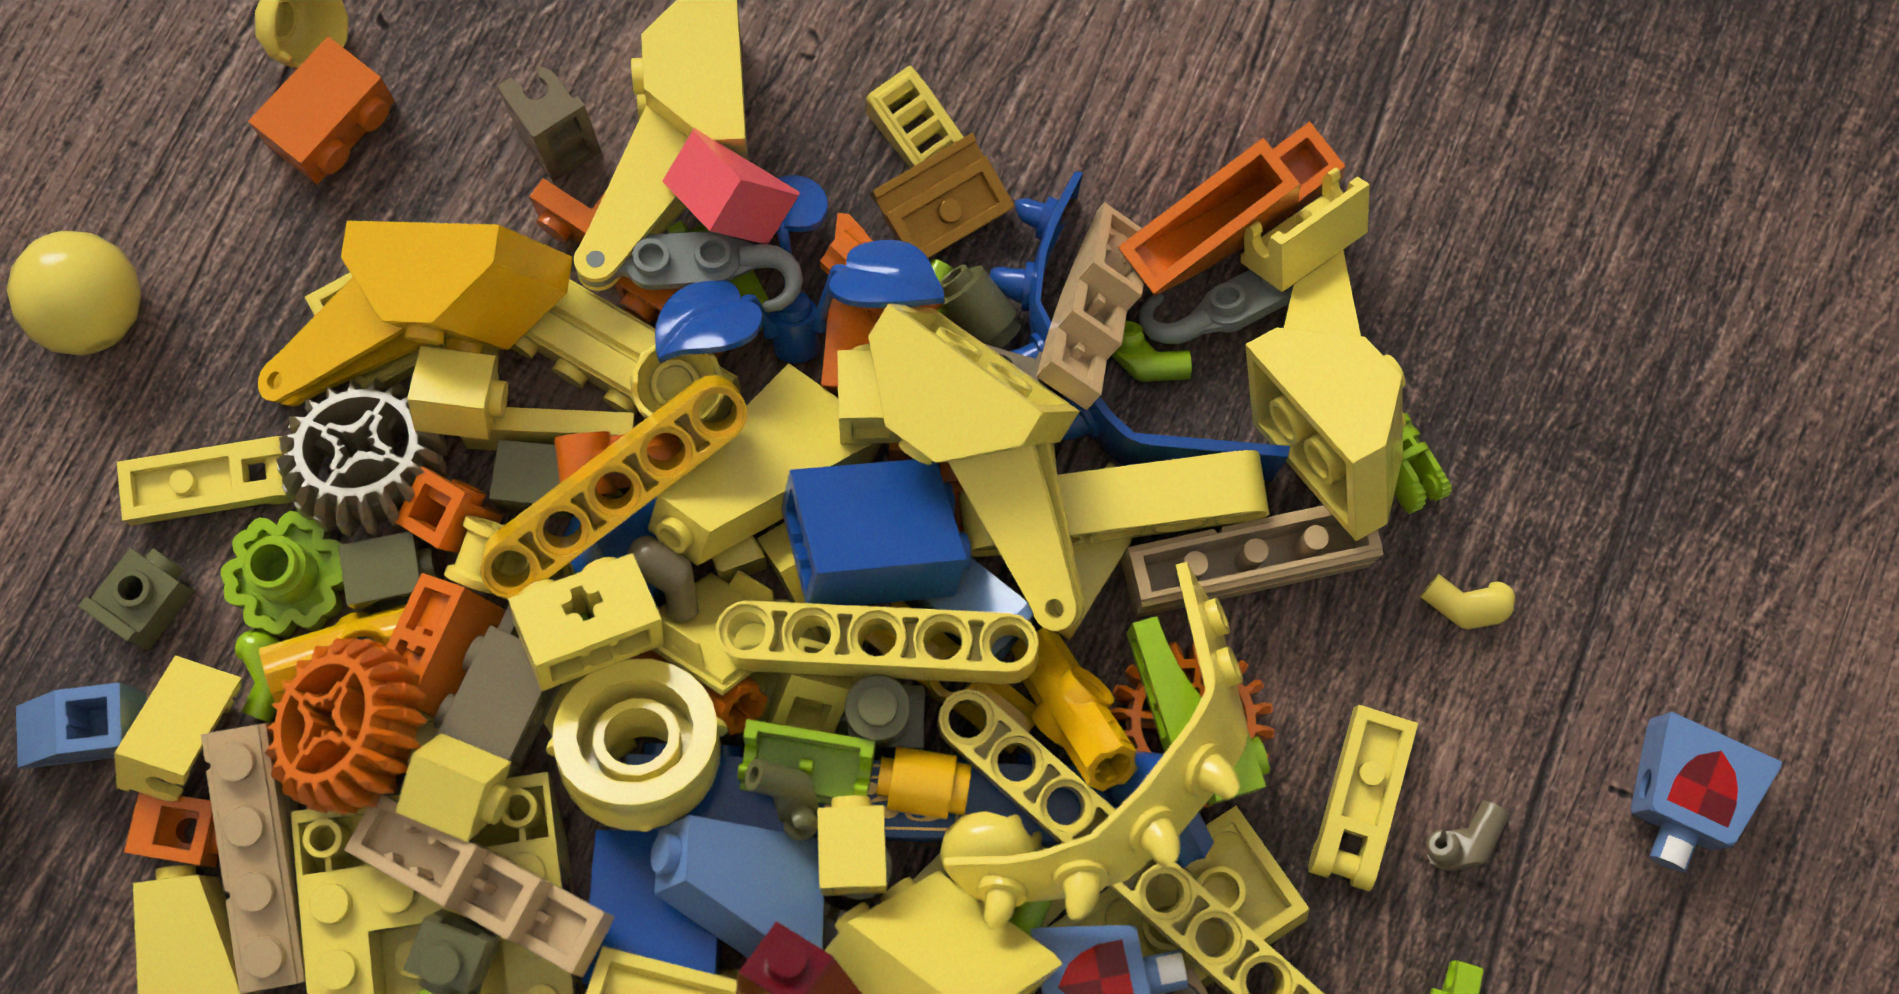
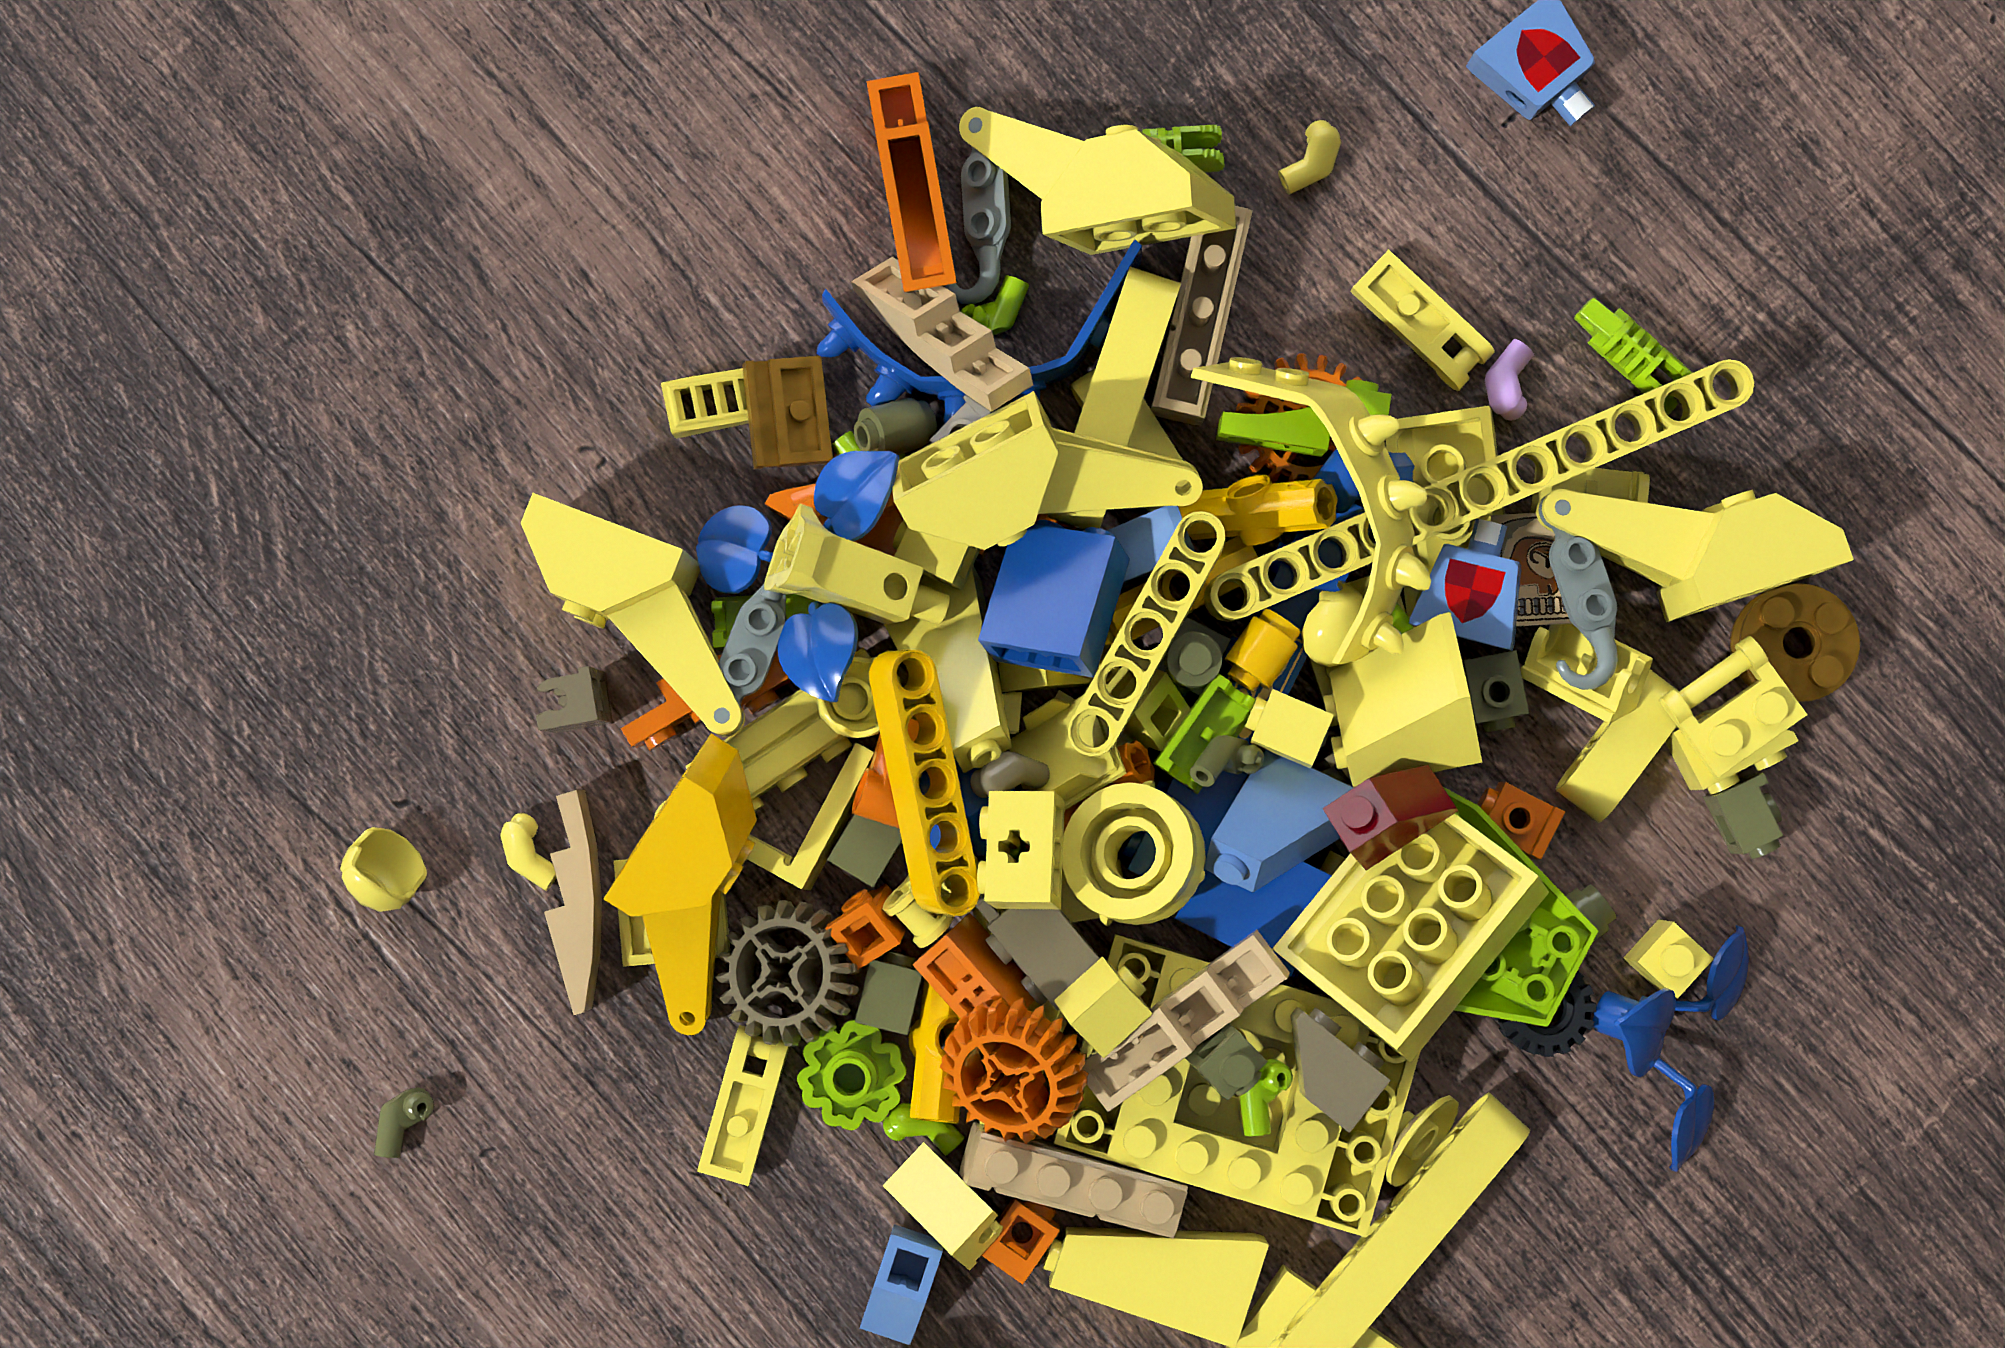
camera: 55 degrees left, 10 degrees up
(56, 150) = (397, 1116): none -> olive arm
(74, 293) = (538, 1148): light yellow piece -> none
(149, 615) = (837, 1205): olive brick -> none
(315, 230) = (577, 925): none -> tan slope
(323, 111) = (469, 883): orange brick -> none
(377, 151) = (521, 853): none -> light yellow arm
(456, 393) = (781, 873): light yellow brick -> none
(728, 190) = (716, 584): coral slope -> none
(798, 316) = (845, 573): none -> light yellow piece
(1309, 235) = (961, 131): light yellow hinge -> none
(1343, 916) = (1503, 382): none -> lavender arm
(1470, 845) = (1496, 256): dark tan arm -> none

